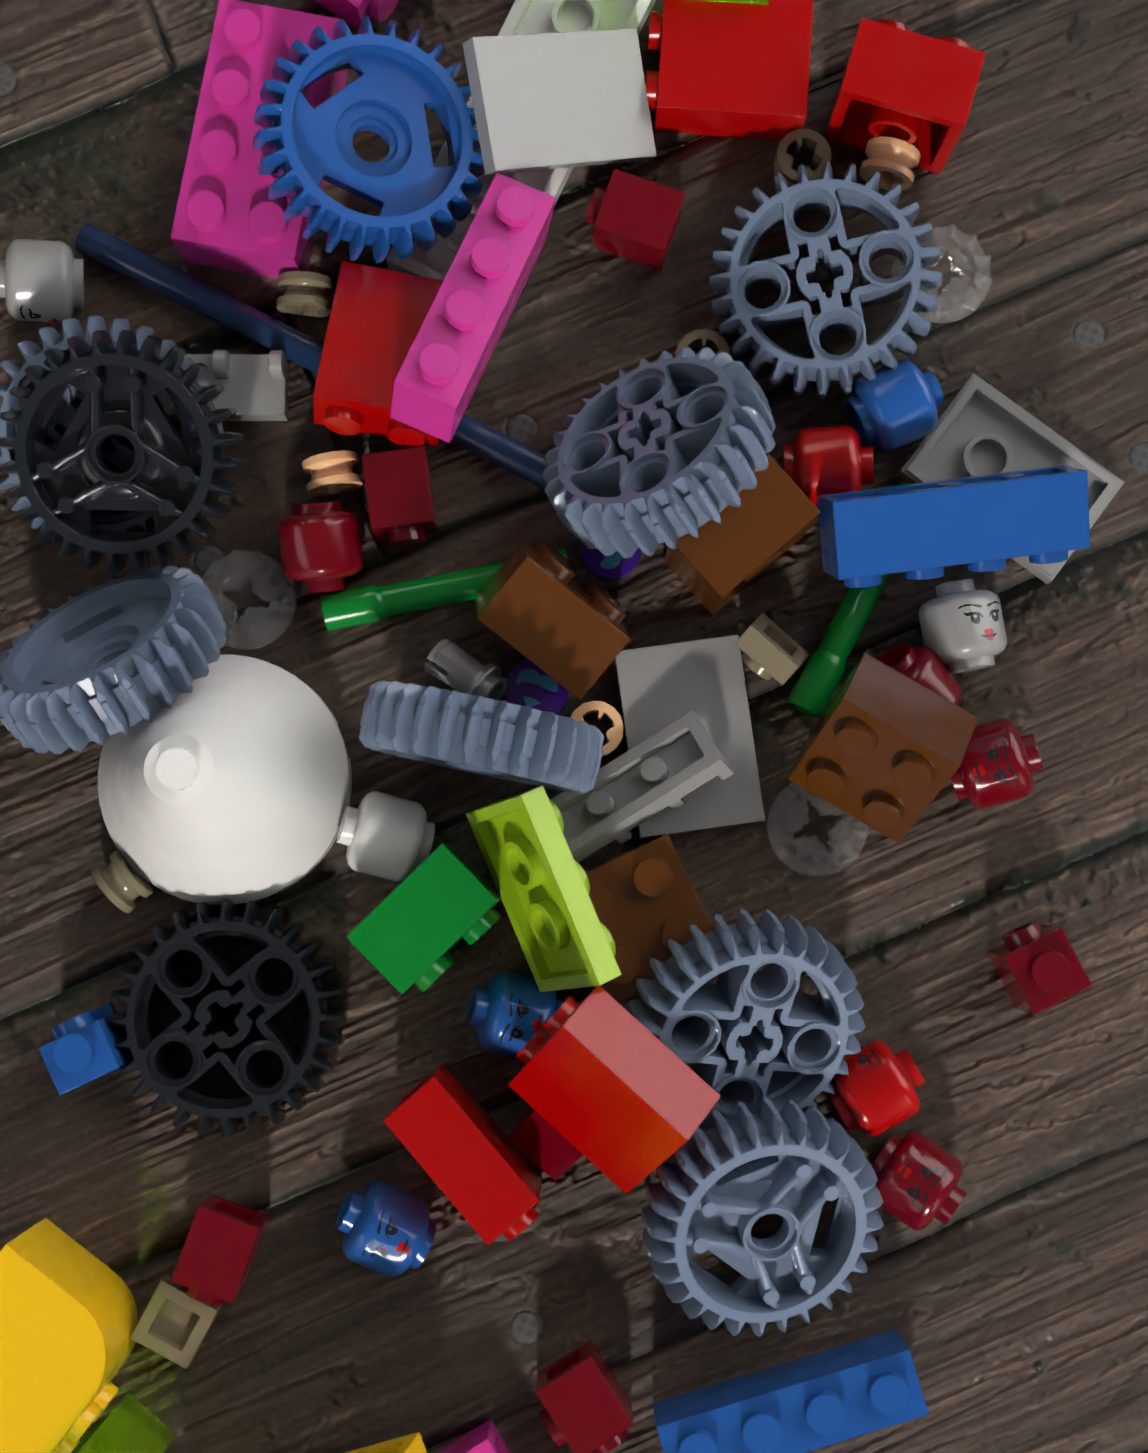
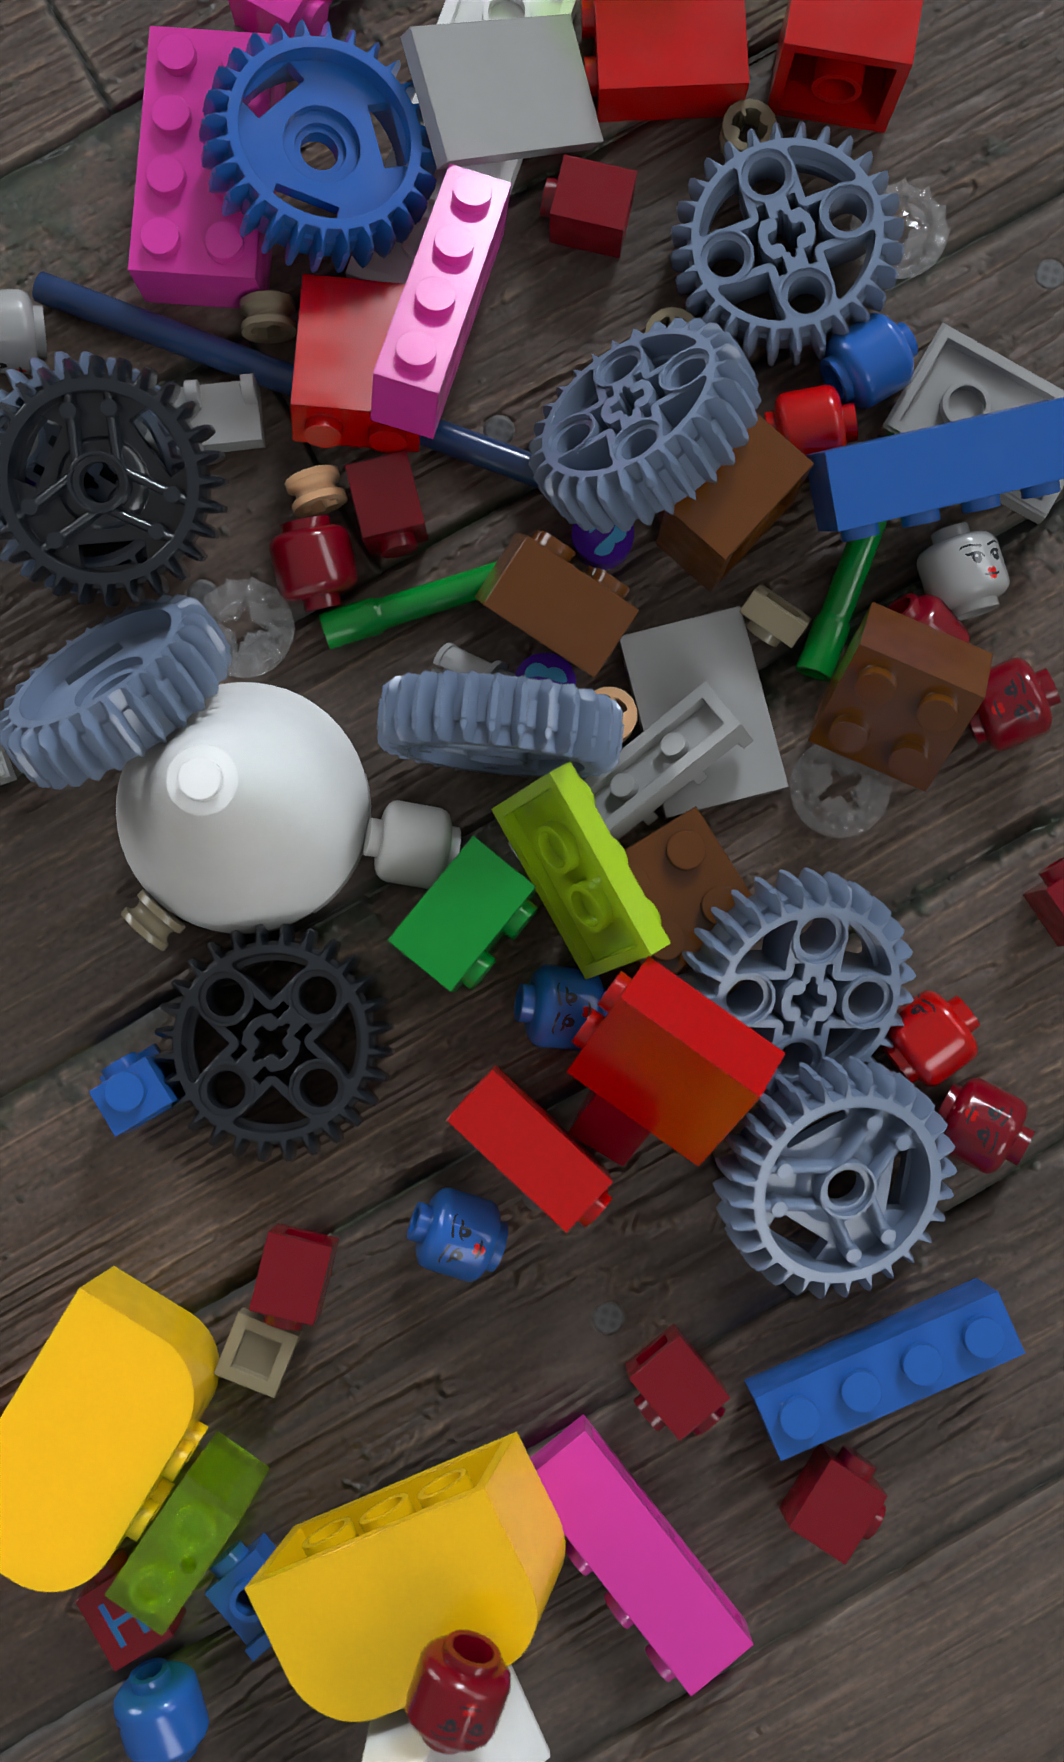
camera: 10 degrees left, 0 degrees up
(892, 160) = (842, 116): light nougat bush -> none

